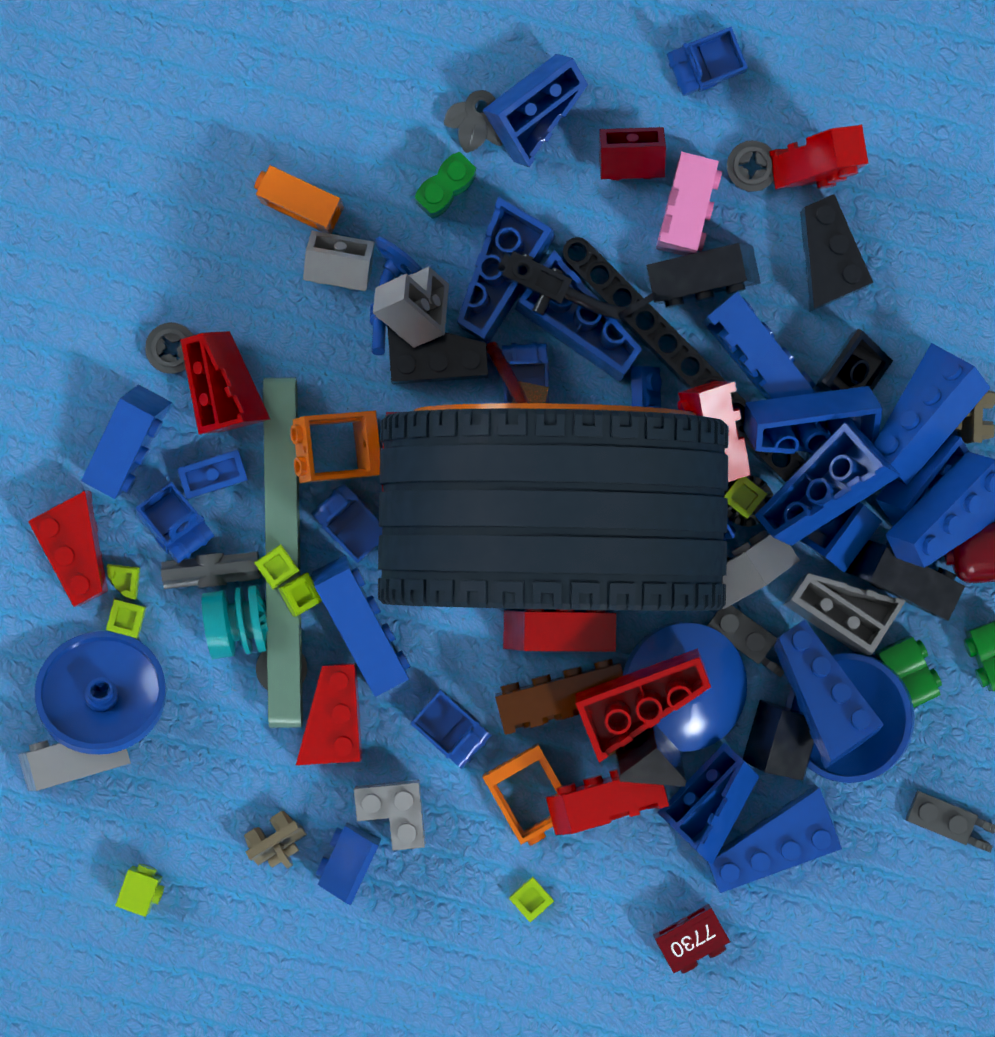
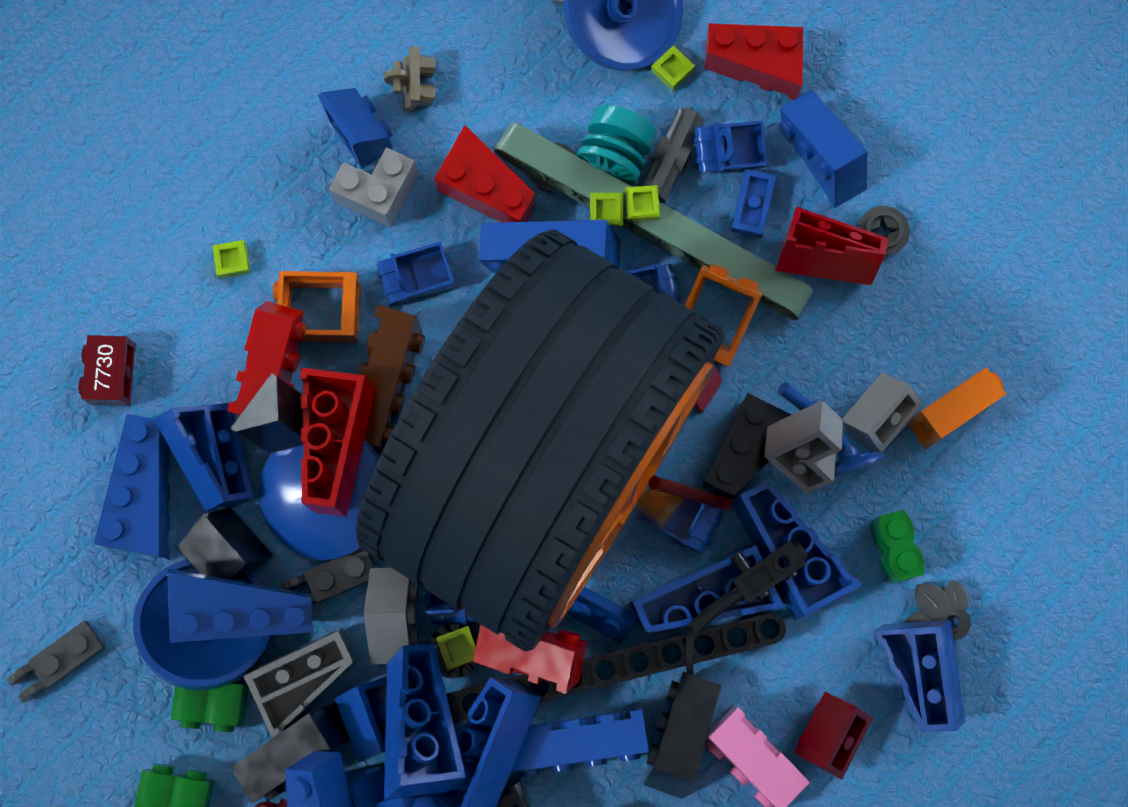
camera: 125 degrees right, 10 degrees down
(124, 579) = (706, 85): lime tile -> none

